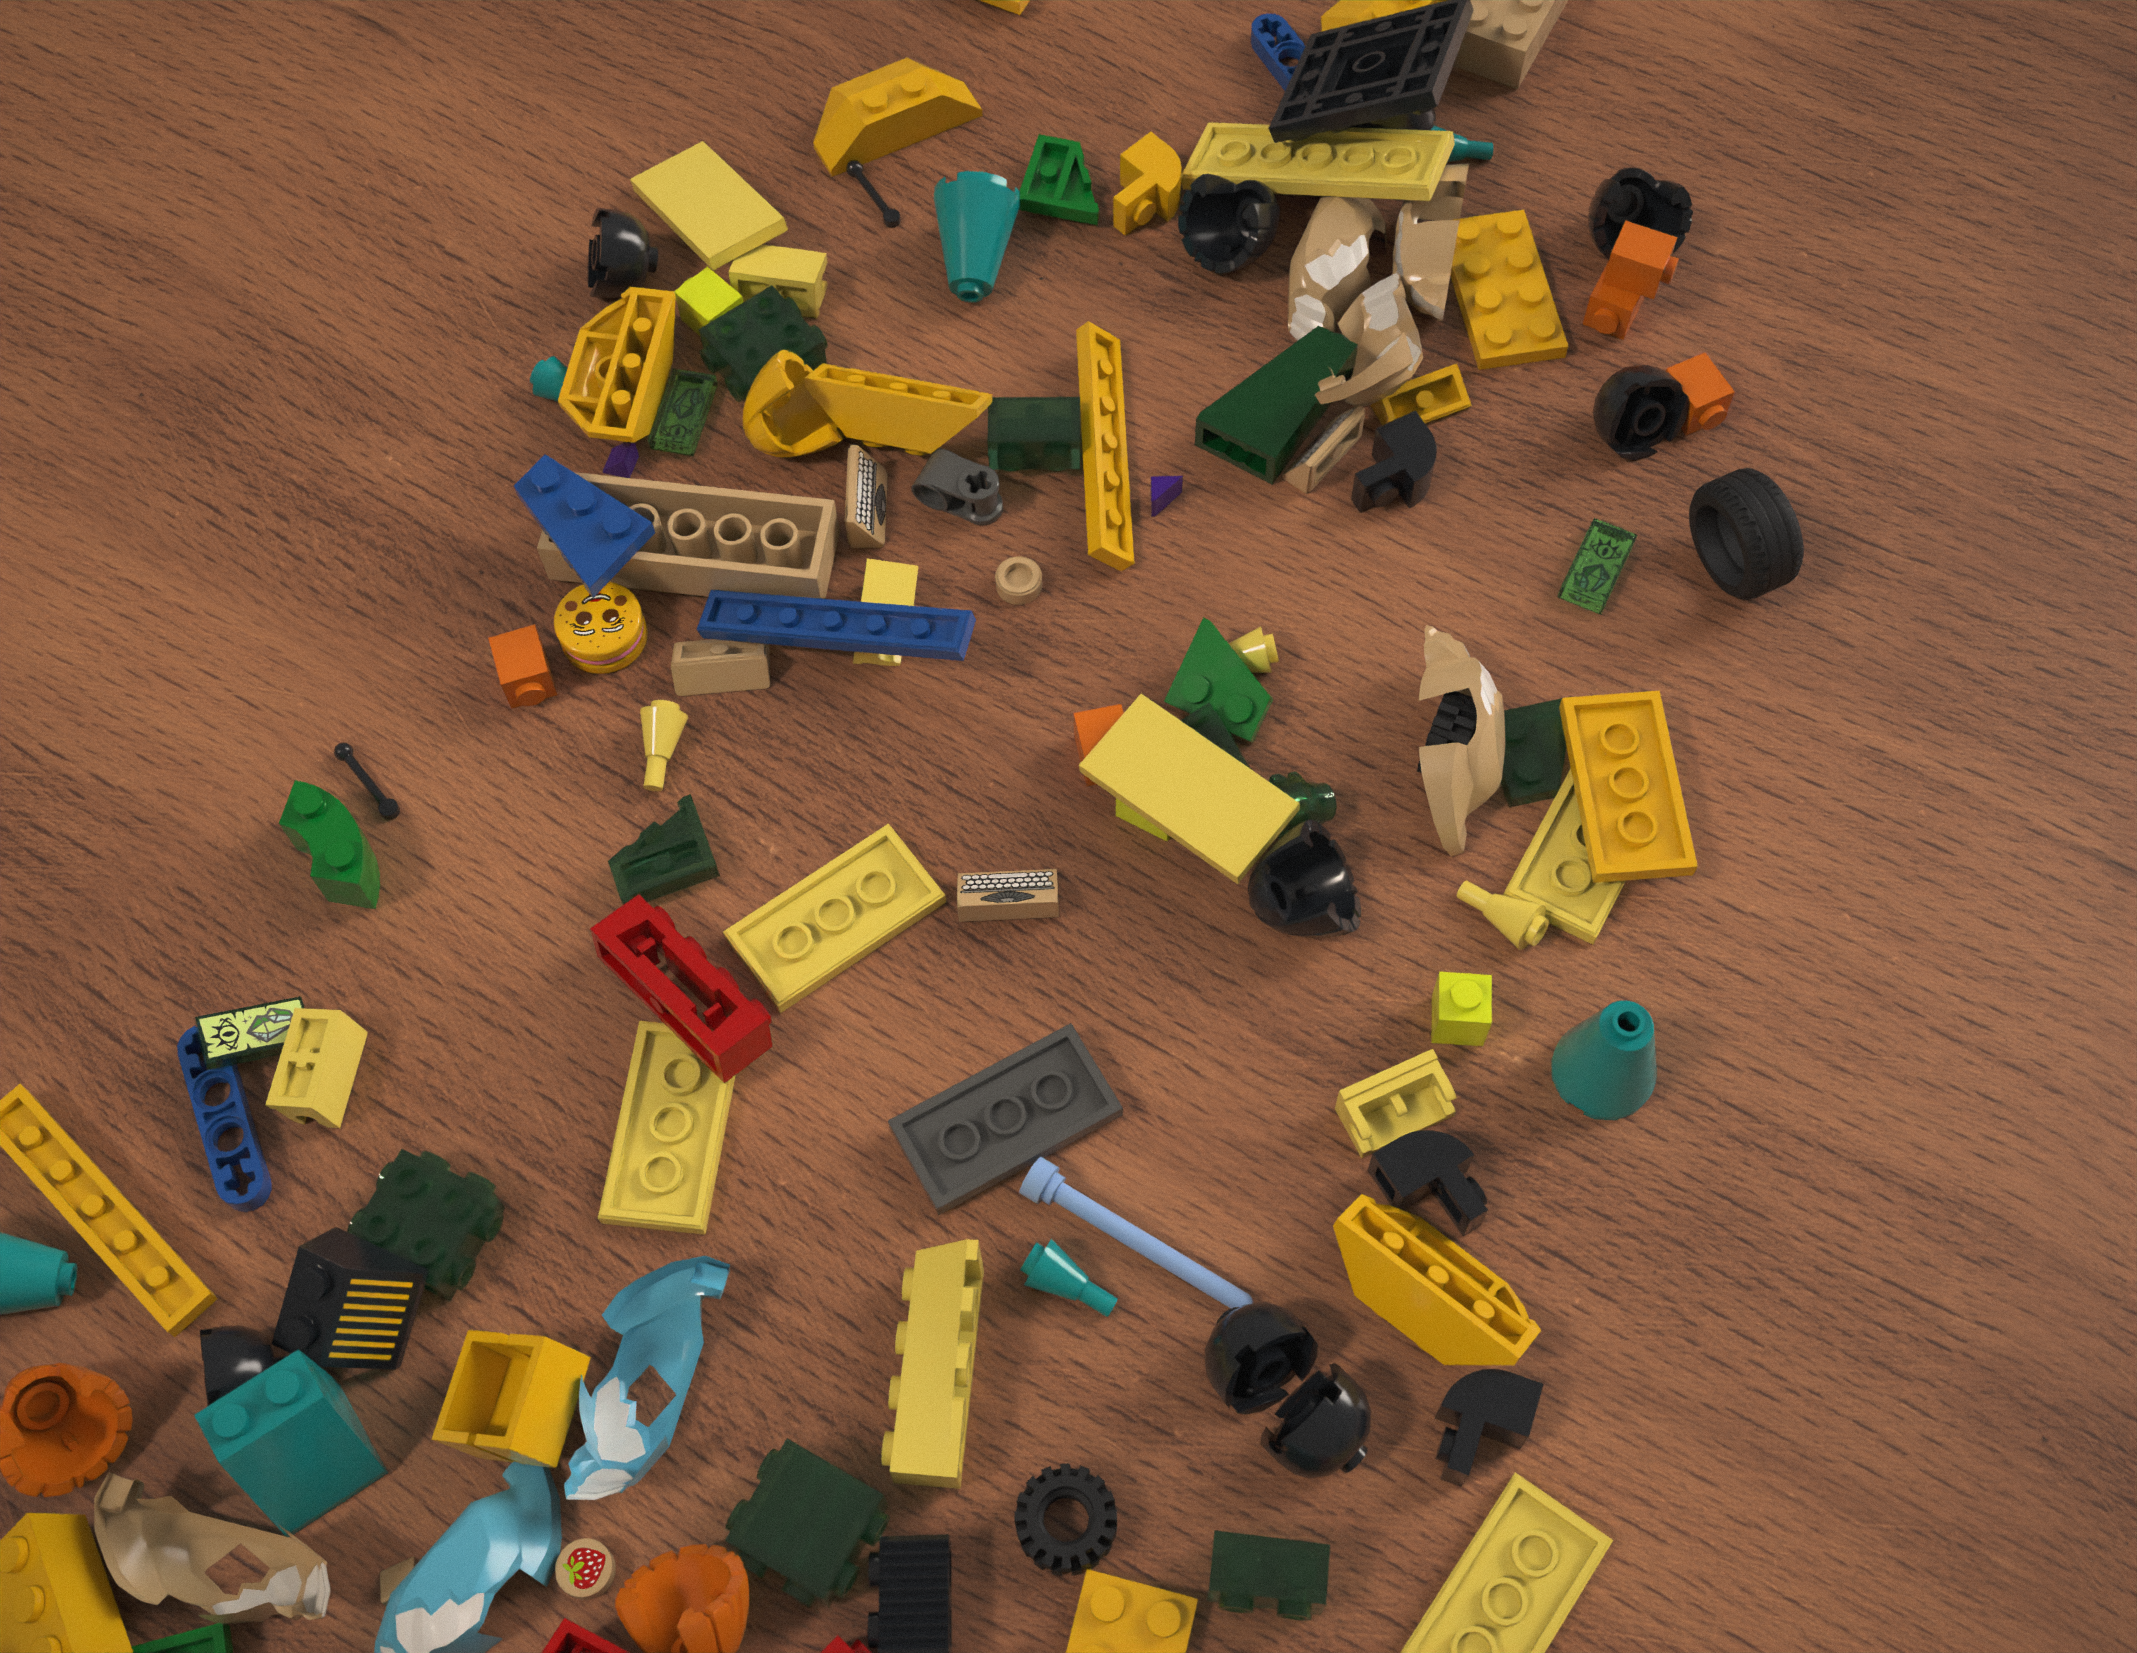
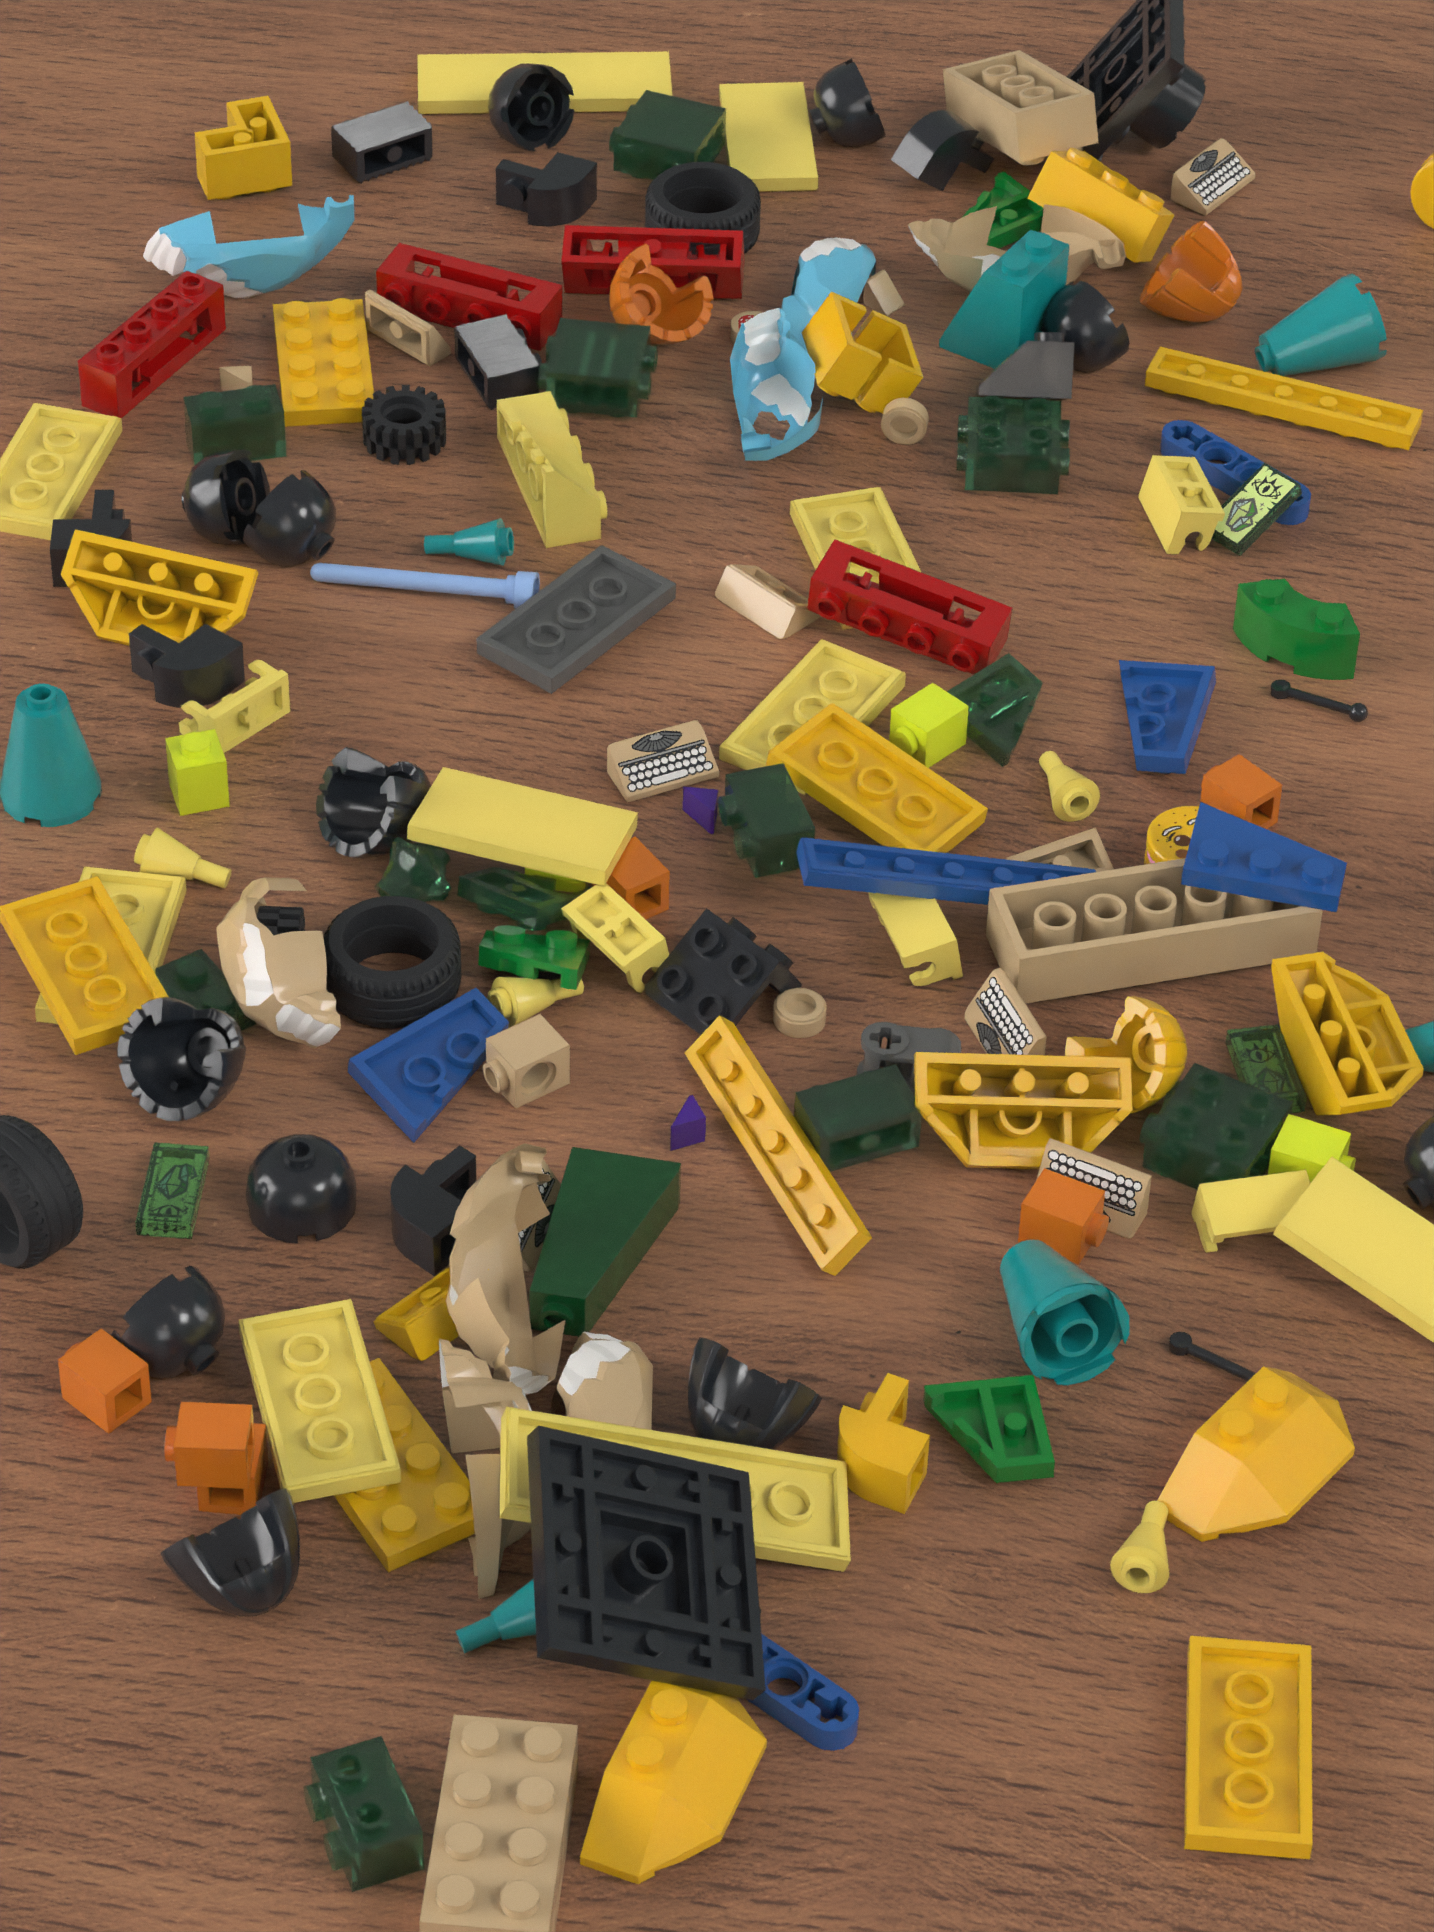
camera: 155 degrees right, 20 degrees down
(515, 1309) = (904, 421): none -> tan tile
(516, 797) = (1165, 711): none -> blue wing
(745, 843) = (929, 725): none -> neon yellow brick
(797, 1095) = (764, 600): none -> tan slope
(834, 779) = (876, 784): none -> yellow plate
(883, 340) = (1124, 1187): none -> slope
(922, 316) = (1063, 1215): none -> orange brick
(952, 764) = (765, 818): none -> clear green brick
(992, 824) = (701, 806): none -> dark purple piece
(1015, 66) = (1143, 1559): none -> light yellow cone
(1066, 615) = (718, 973): none -> black bracket
(1138, 665) = (617, 932): none -> light yellow hinge
(1271, 581) = (527, 1061): none -> tan brick
(1353, 615) = (428, 1061): none -> blue wing
(1357, 673) = (385, 927): none -> black tyre
(1496, 524) = (301, 1188): none -> black cylinder
(1542, 317) = (319, 1401): none -> light yellow tile
(1557, 651) = (180, 1057): none -> black hair
(1593, 46) = (365, 1813): none -> clear green brick

